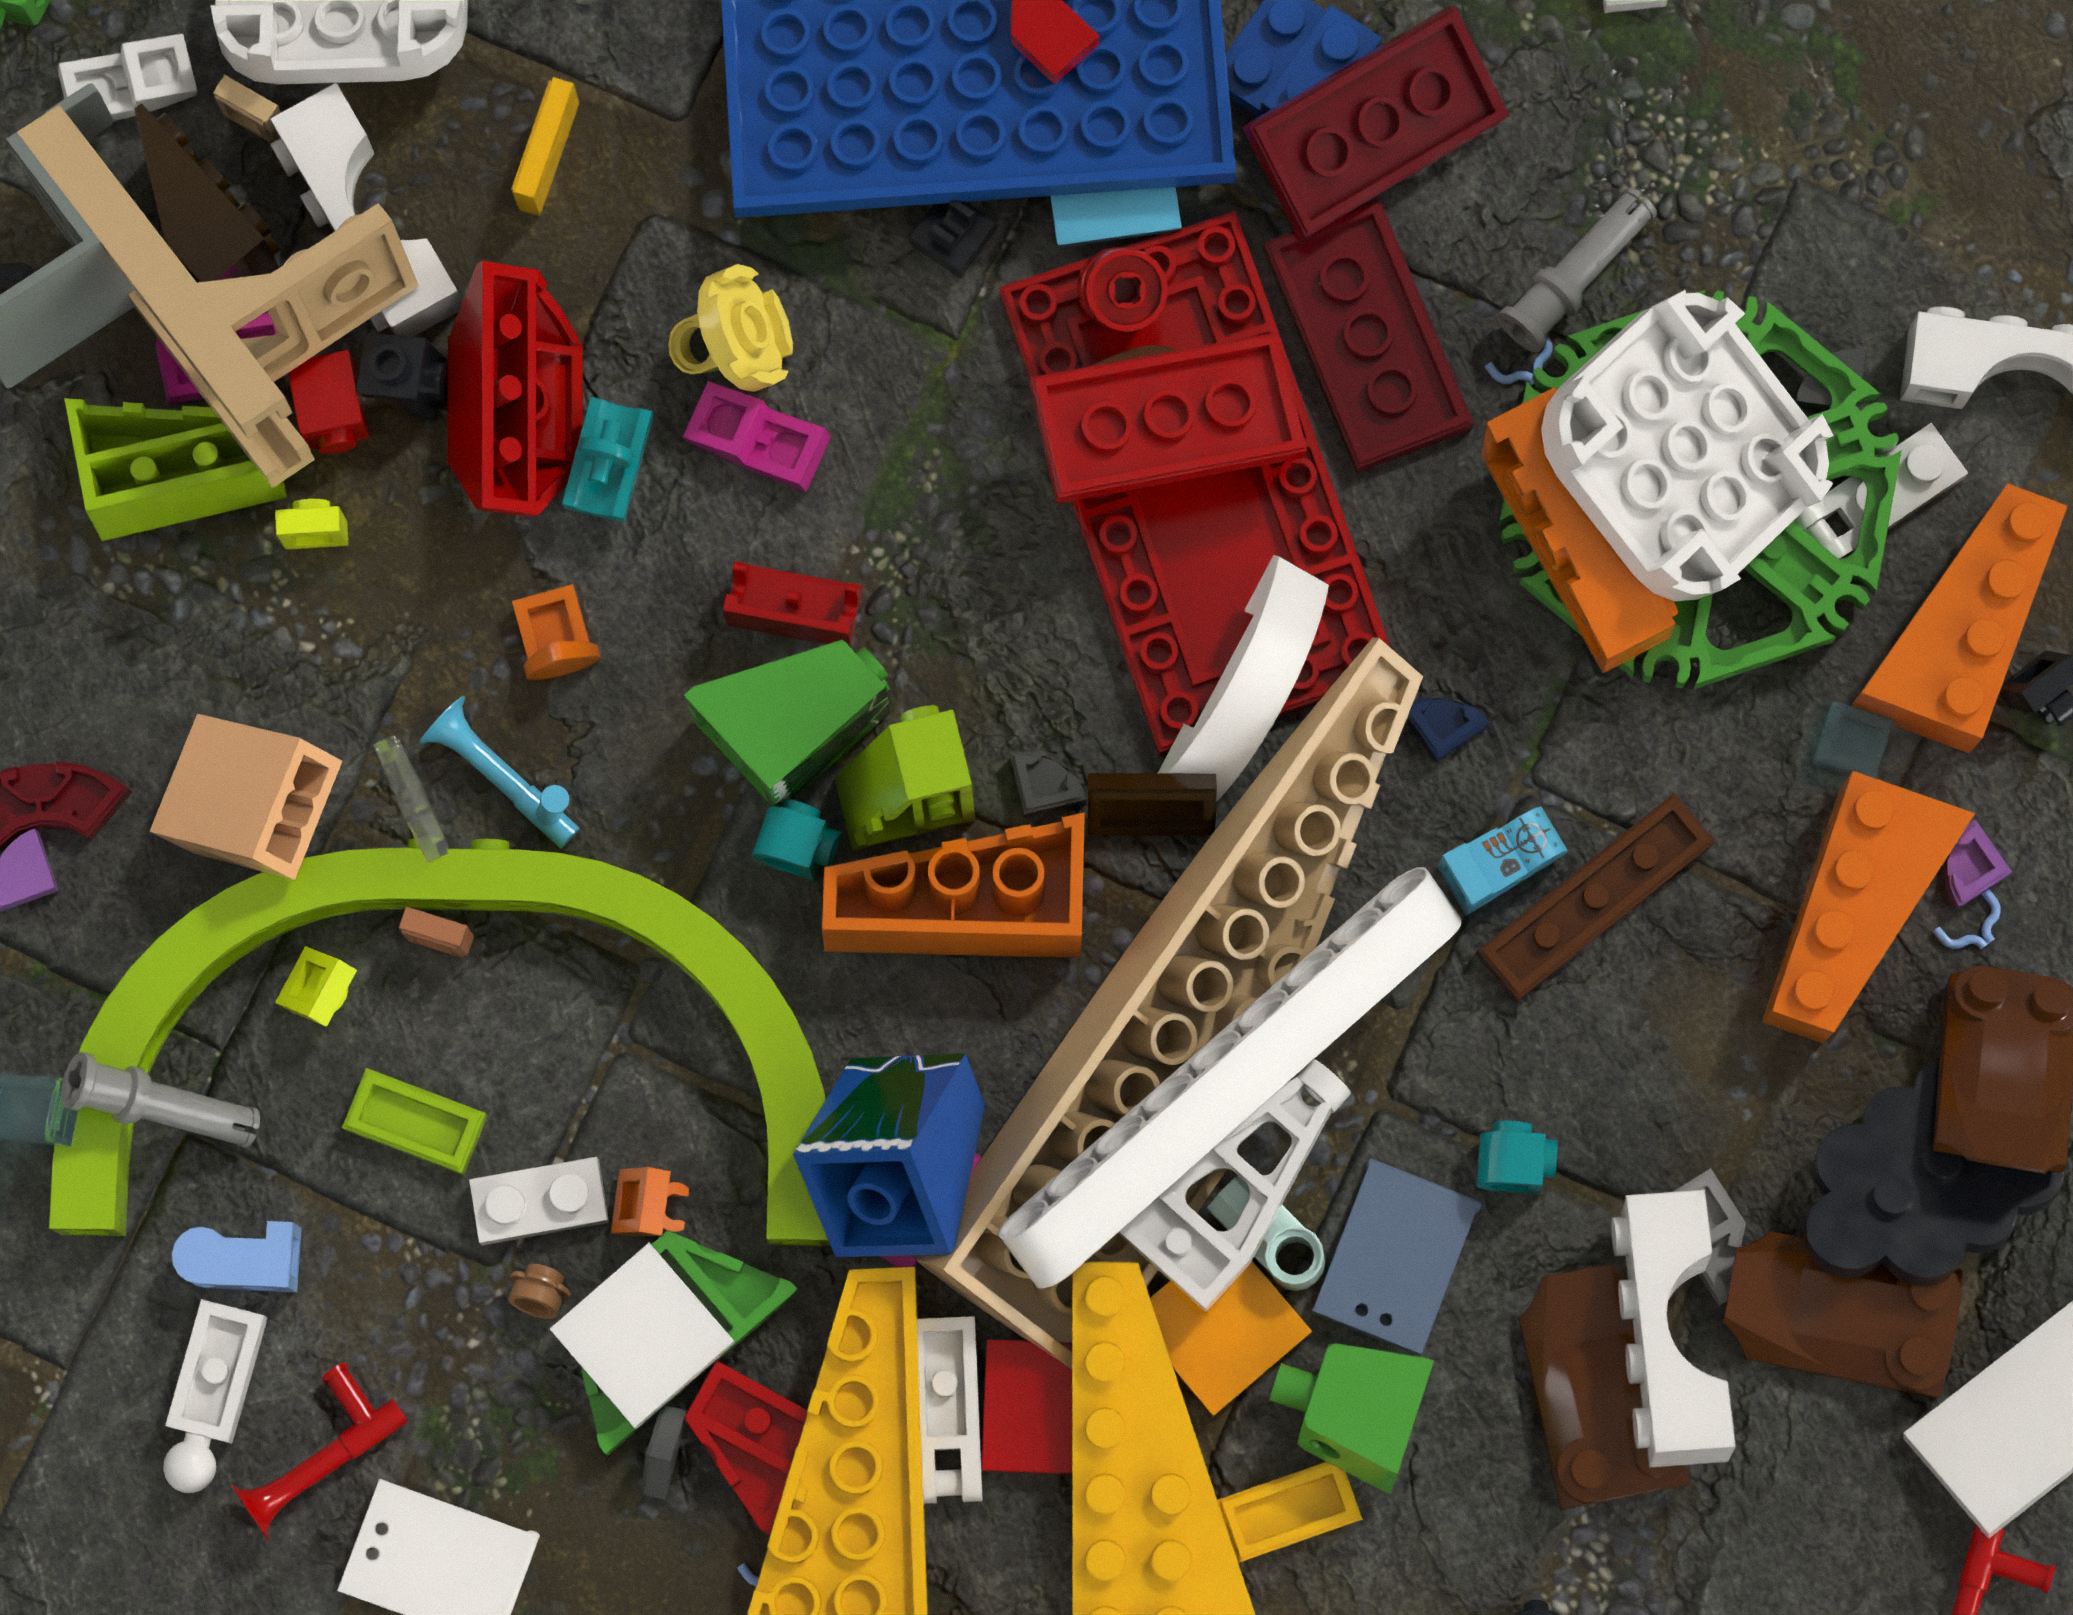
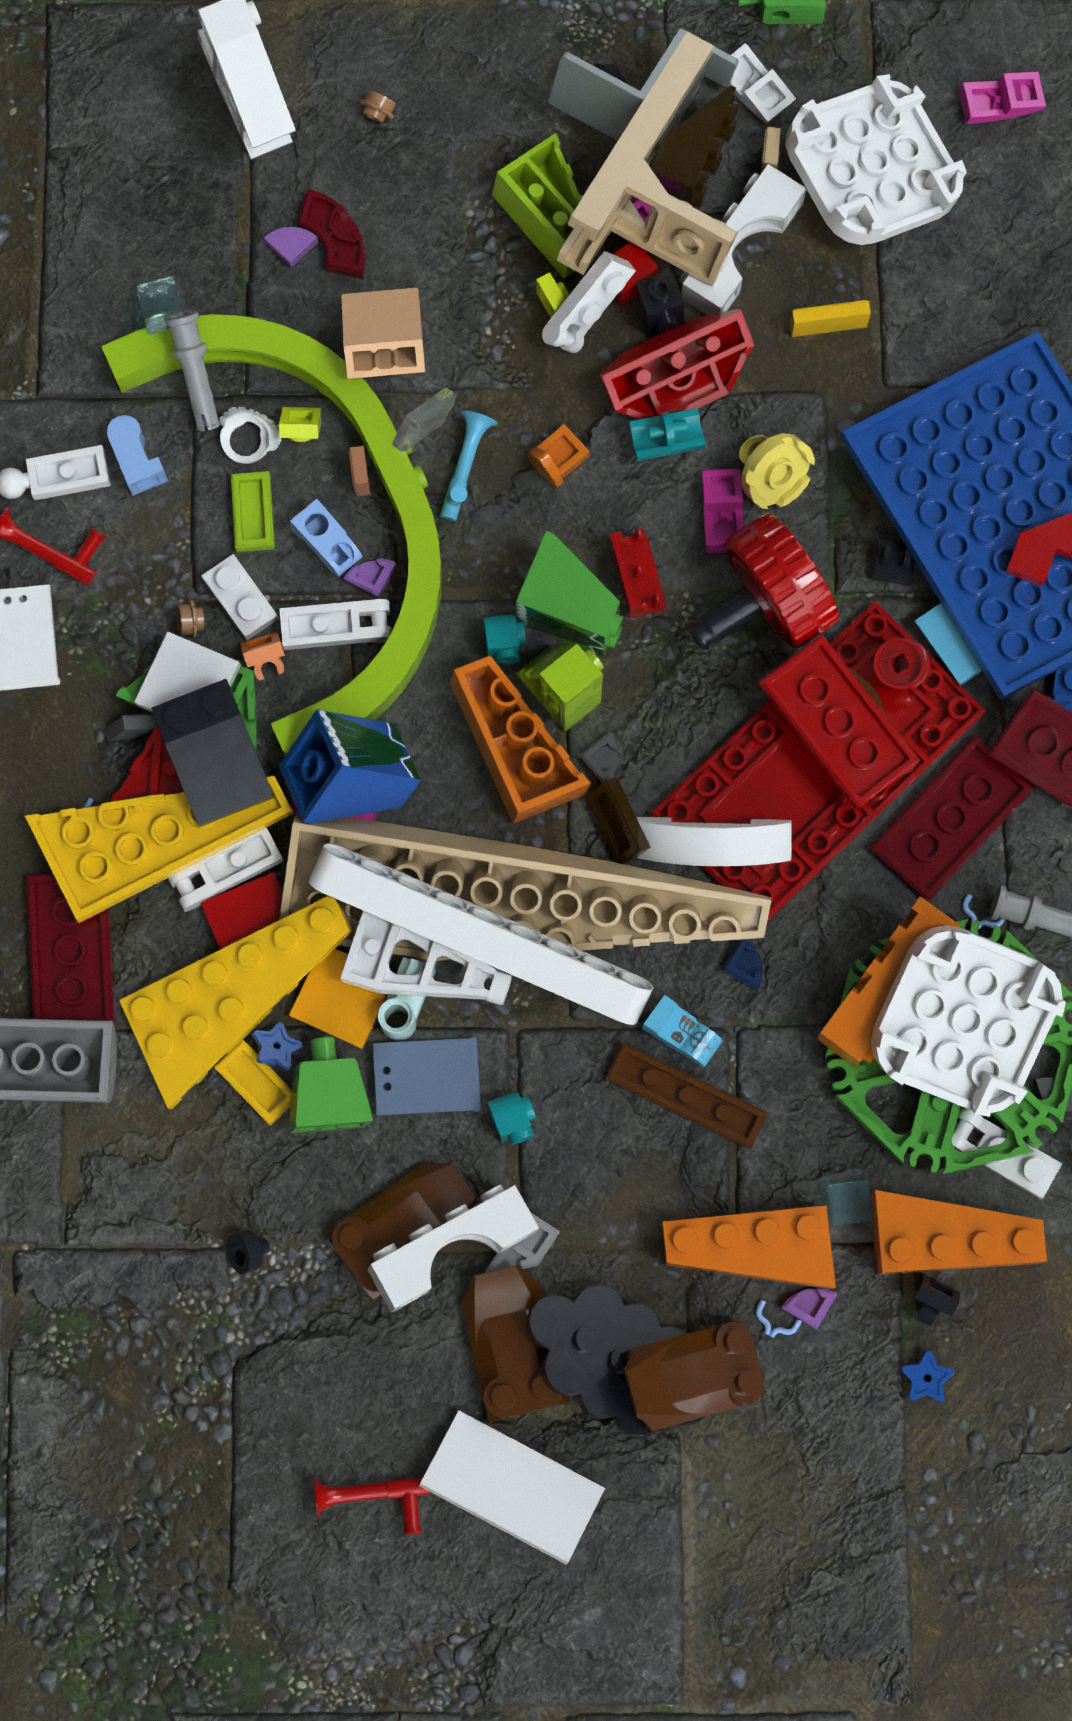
camera: 65 degrees right, 0 degrees up
(307, 1042) = (237, 417): none -> white piece
(352, 476) = (587, 302): none -> white plate
(515, 1029) = (325, 538): none -> light blue leg
(602, 992) = (371, 576): none -> medium lavender tile
(652, 1079) = (334, 624): none -> white plate
(776, 1341) = (212, 752): none -> black slope
(919, 407) = (775, 583): none -> red wheel
(1257, 1471) = (266, 1051): none -> blue plate

